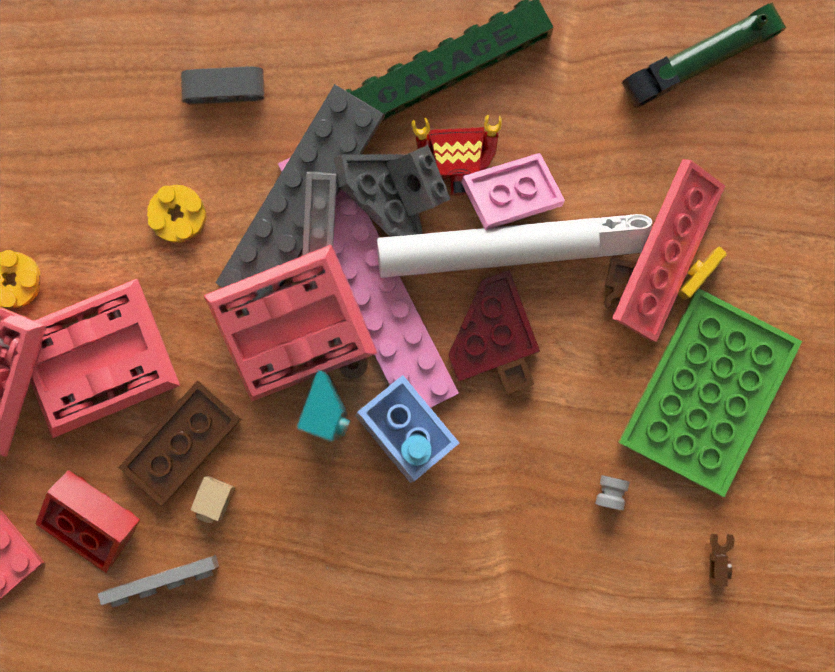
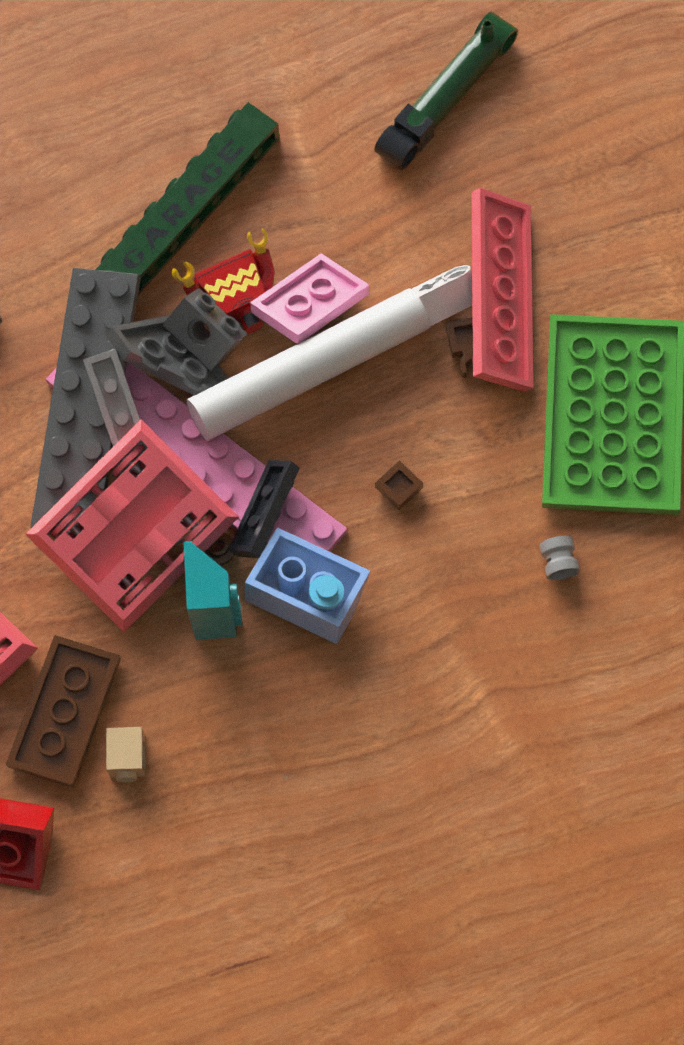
camera: 25 degrees left, 15 degrees down
(148, 585) = (93, 876): light grey plate -> none
(399, 354) = (264, 509): none -> black plate
(492, 330) = (353, 448): dark red plate -> none
(700, 272) = (545, 299): yellow plate -> none

